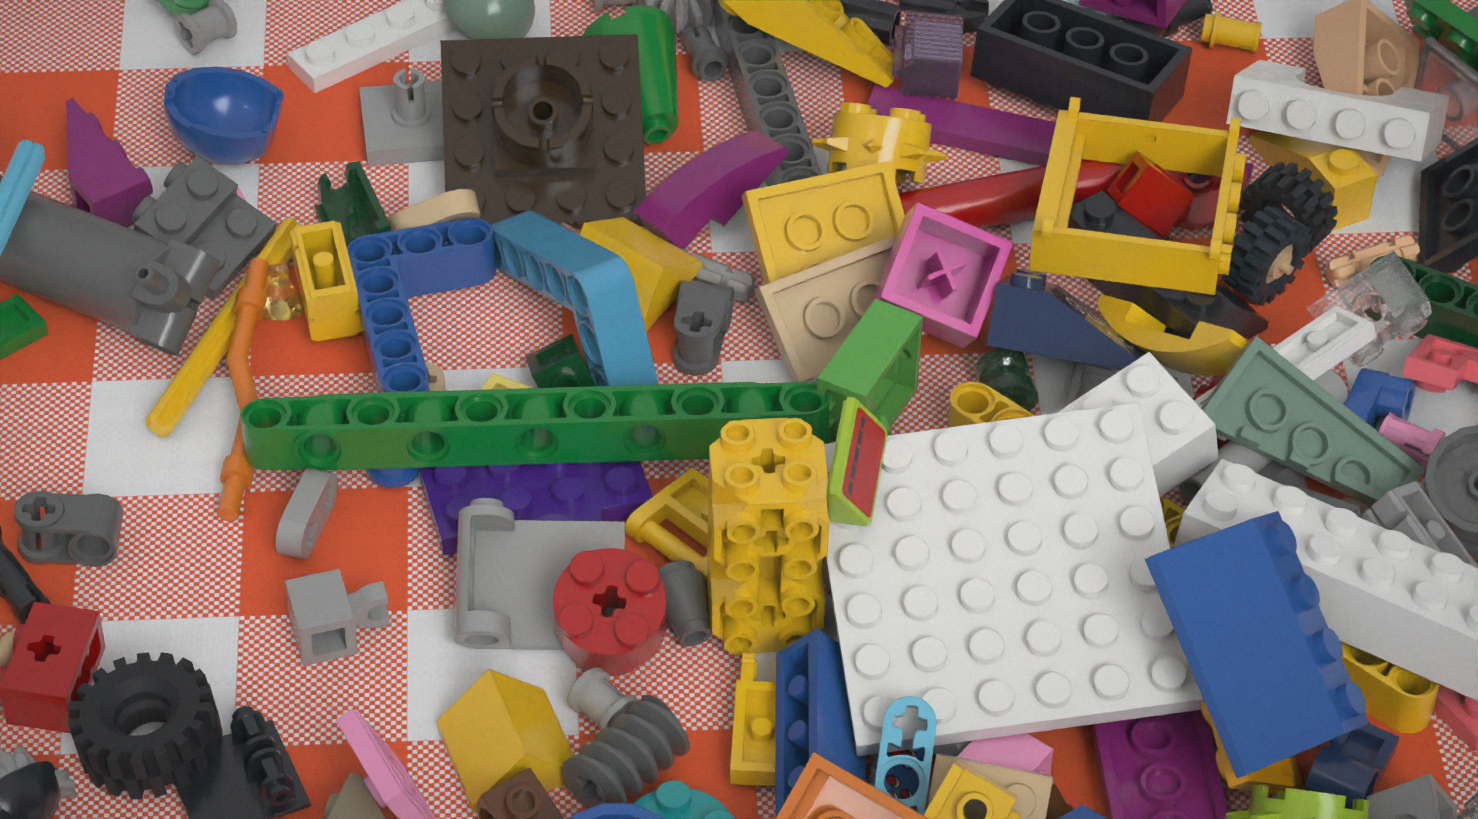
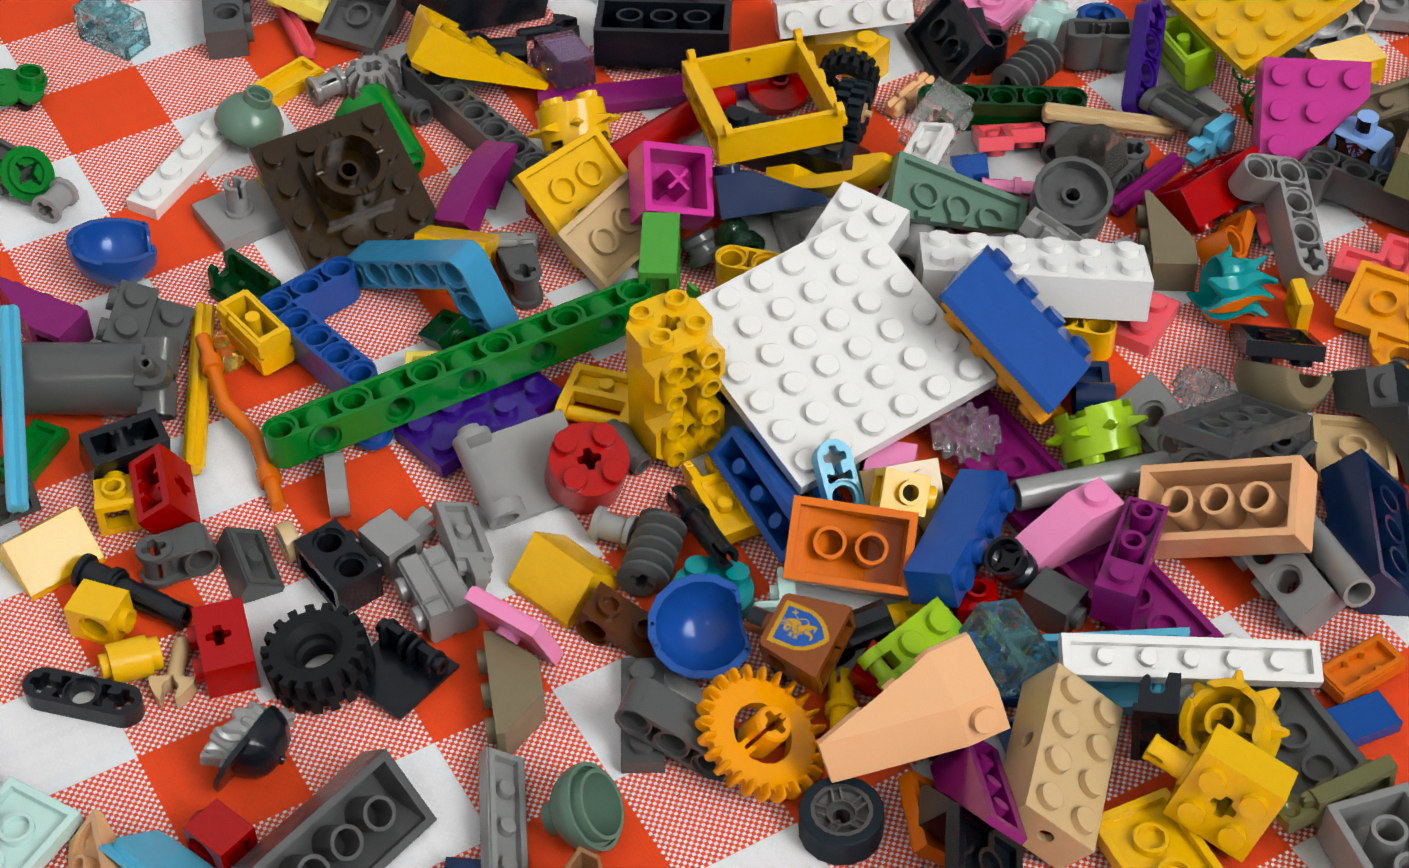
camera: 25 degrees left, 0 degrees up
(45, 425) = (111, 495): none -> yellow brick
(85, 372) = (119, 443): none -> black brick
(96, 442) = (163, 490): none -> red brick
(149, 574) = (248, 564): none -> dark grey slope
(206, 563) = (285, 535): none -> tan tile
(243, 620) = (339, 566): none -> black brick
(330, 684) = (435, 594): none -> light grey brick
(410, 650) = (464, 541): none -> light grey hinge
(442, 208) = (307, 259): tan beam -> none
(711, 733) = (699, 523): none -> black pin
(855, 465) = (707, 293): slope -> none
(945, 371) = (700, 247): none -> dark grey wheel
(1125, 759) = (966, 432): none -> clear gear
(1151, 194) = (760, 95): red brick -> none

